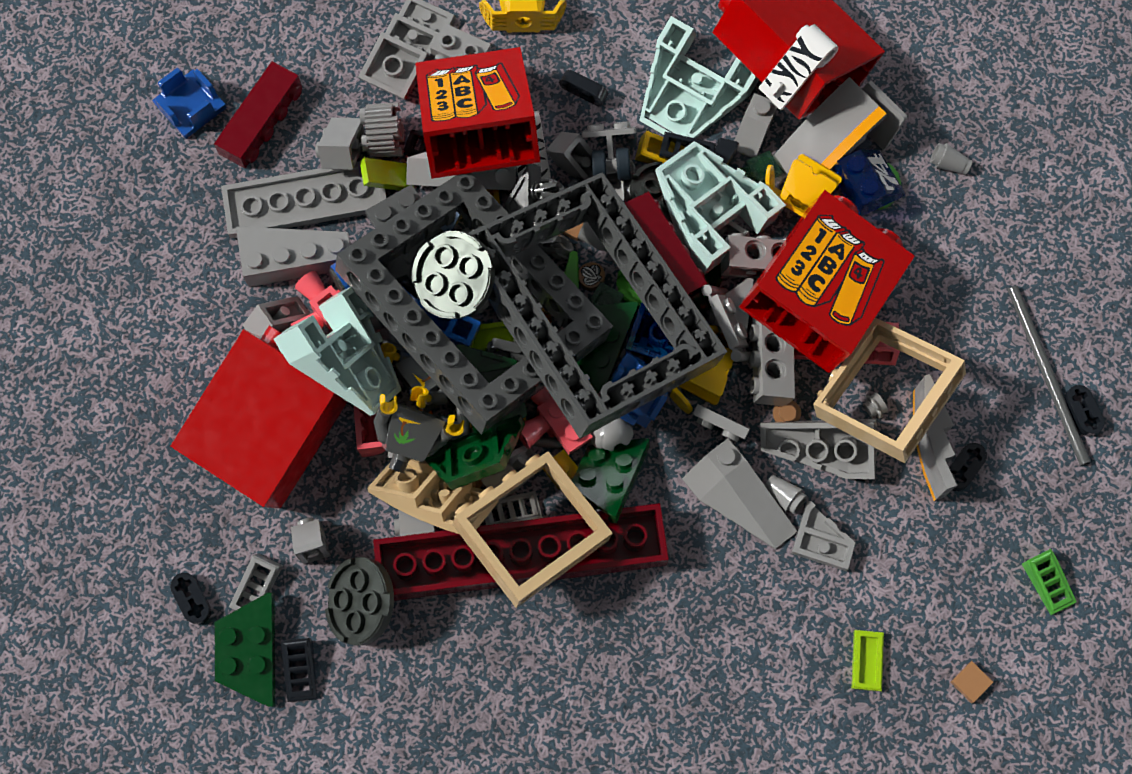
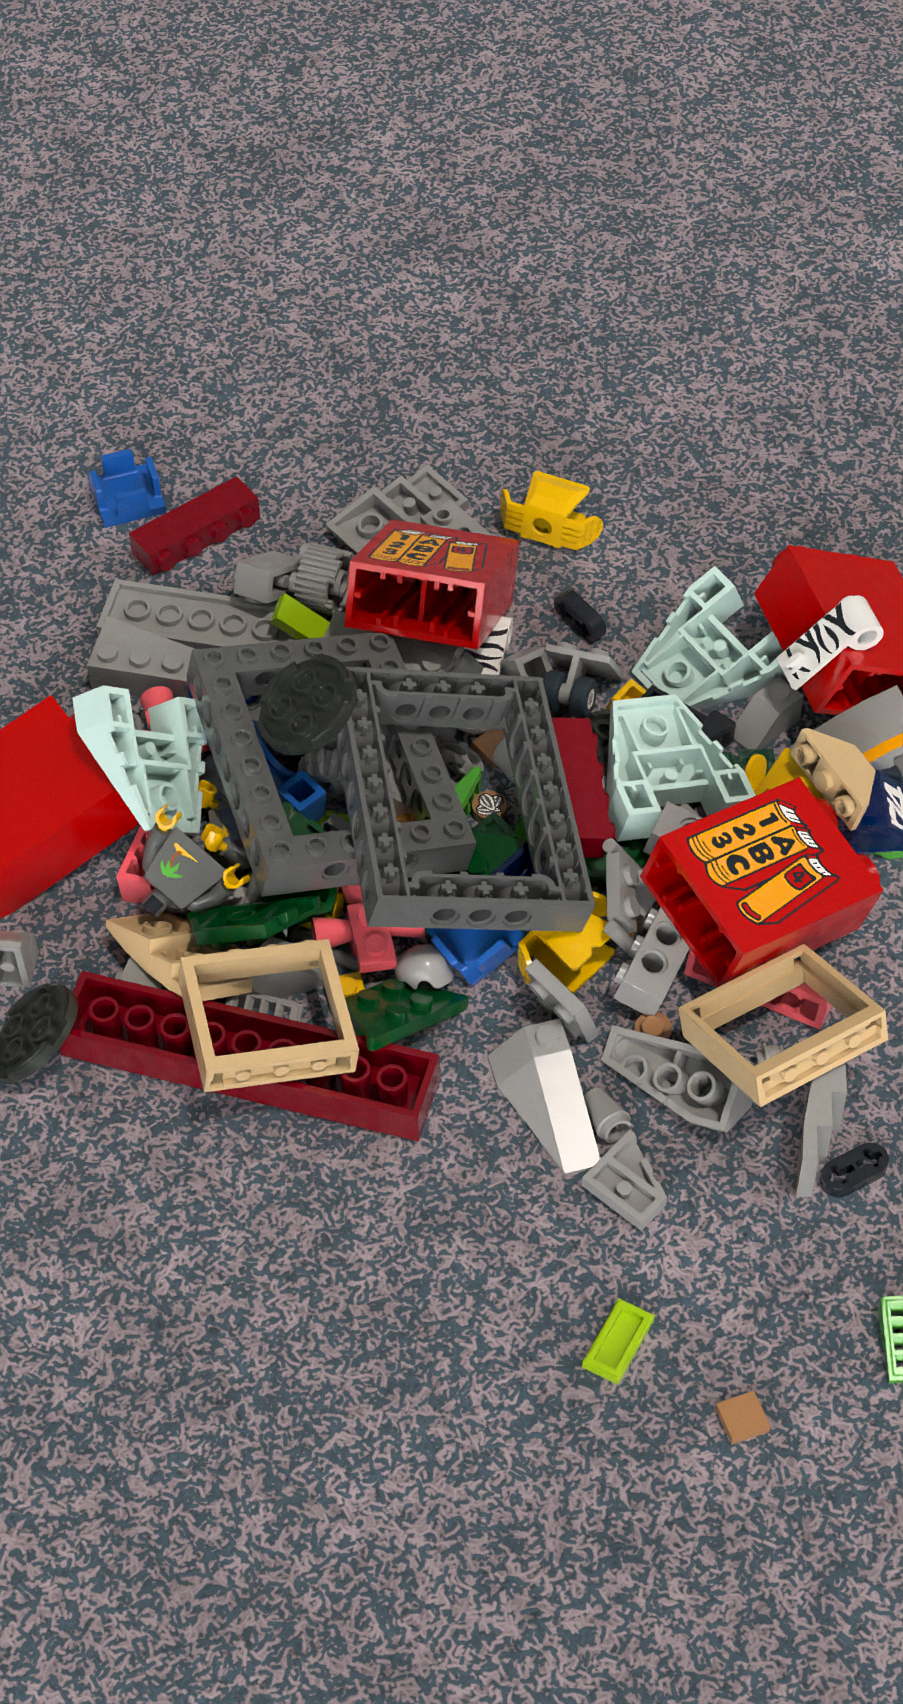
camera: 25 degrees right, 20 degrees down
(844, 171) = (837, 772): none -> tan slope

